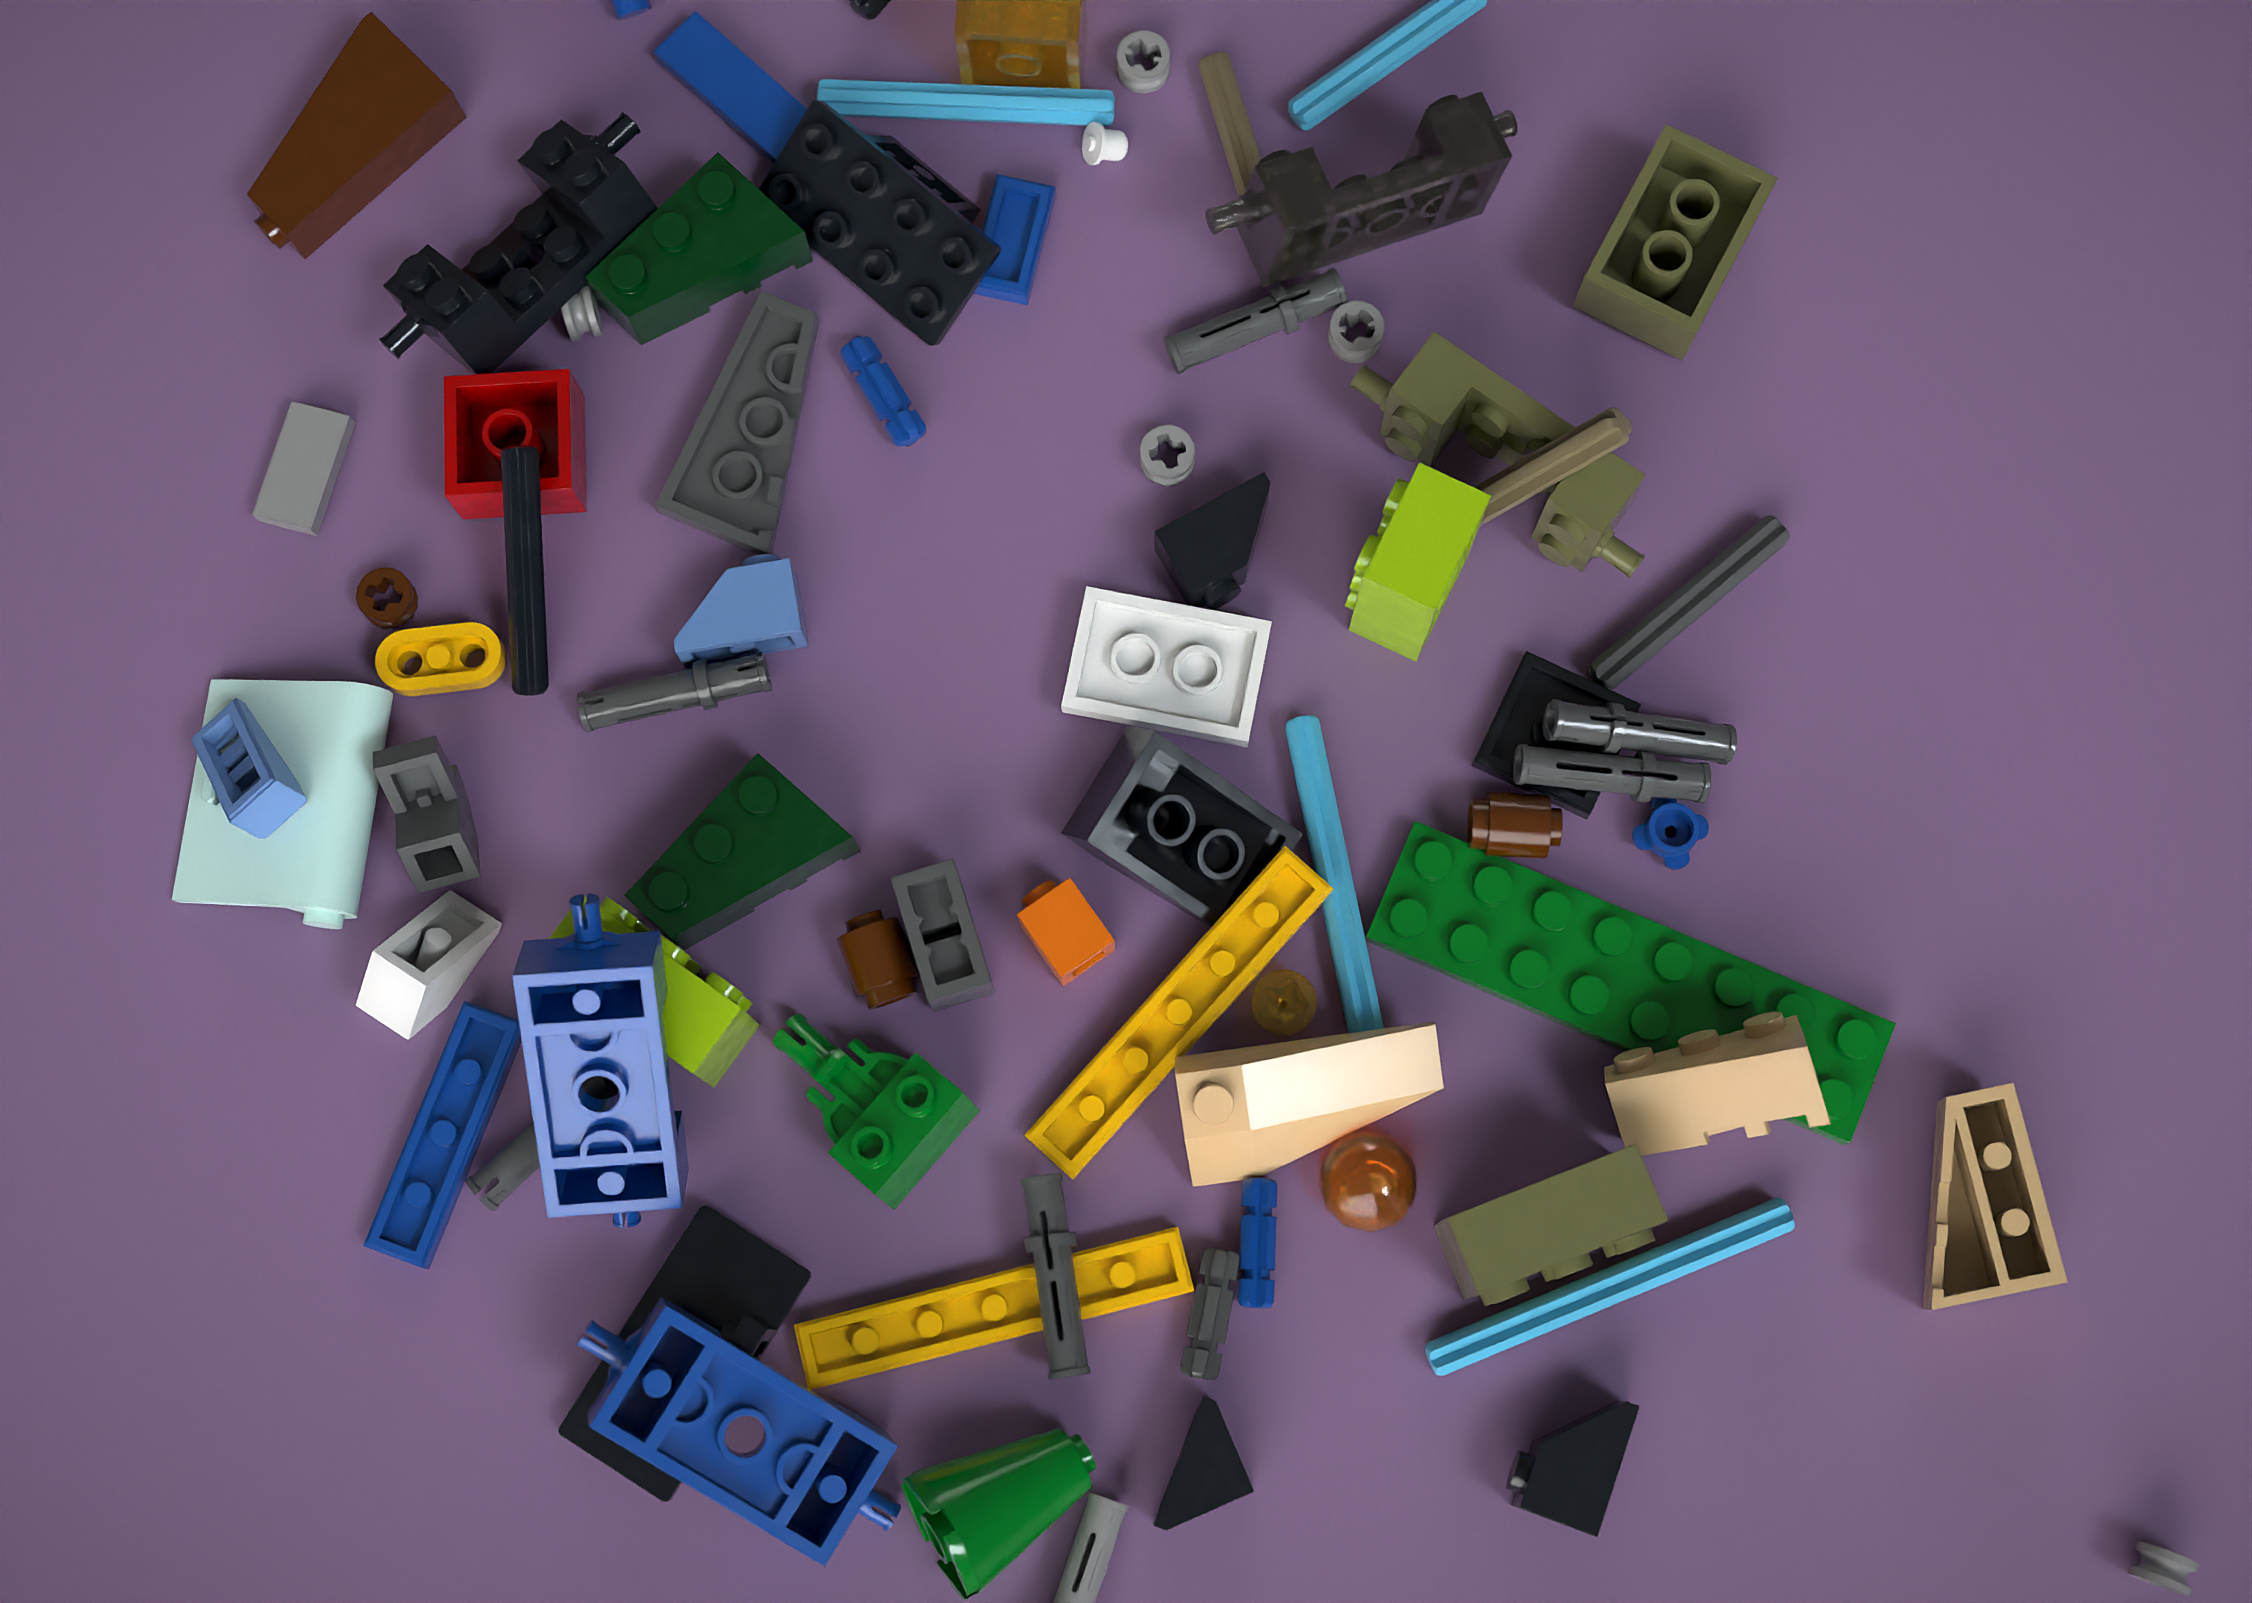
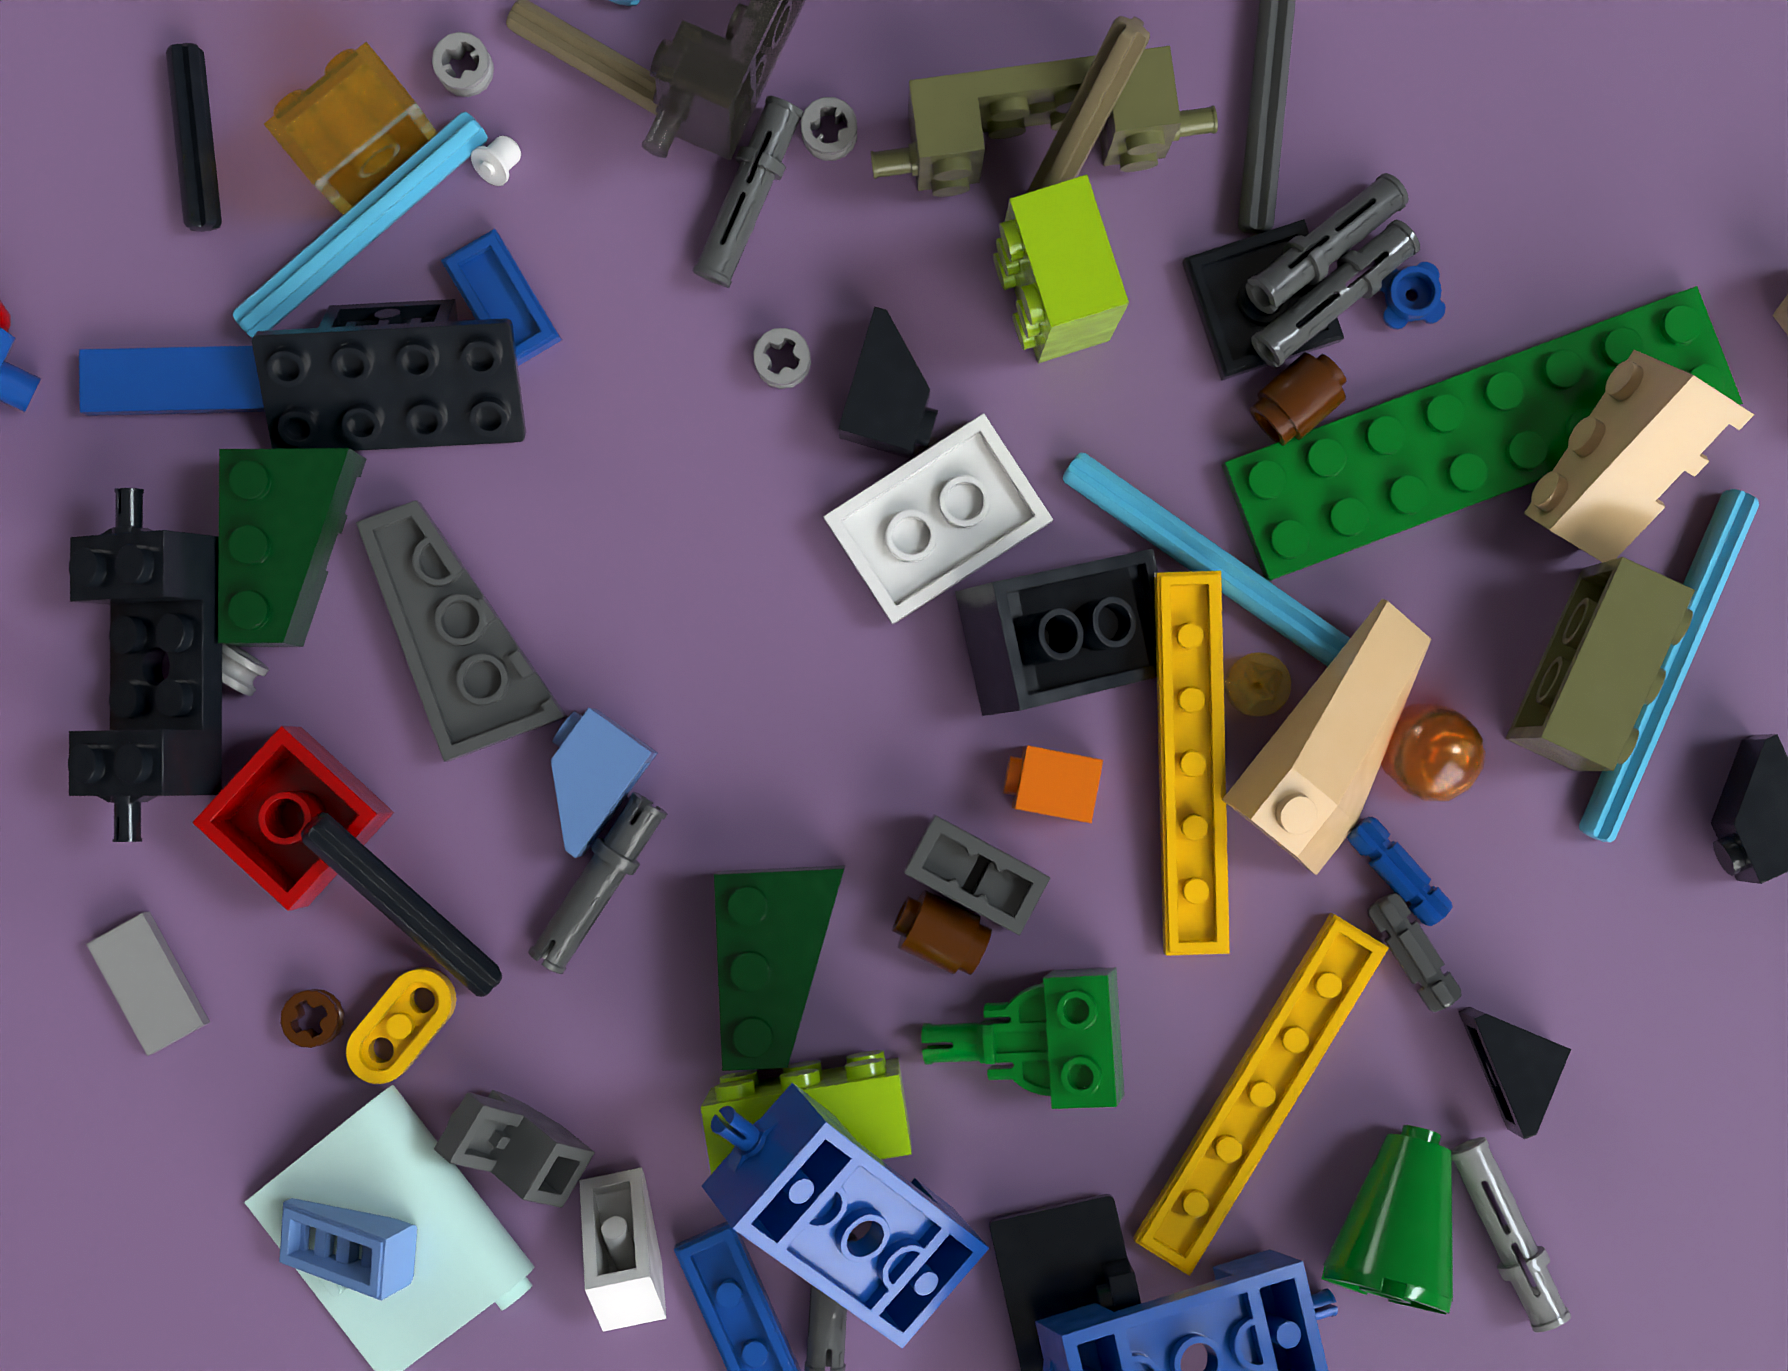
camera: 50 degrees left, 10 degrees up
(883, 391) = (523, 510): blue axle -> none
(1055, 1275) = (1347, 1078): dark grey pin -> none

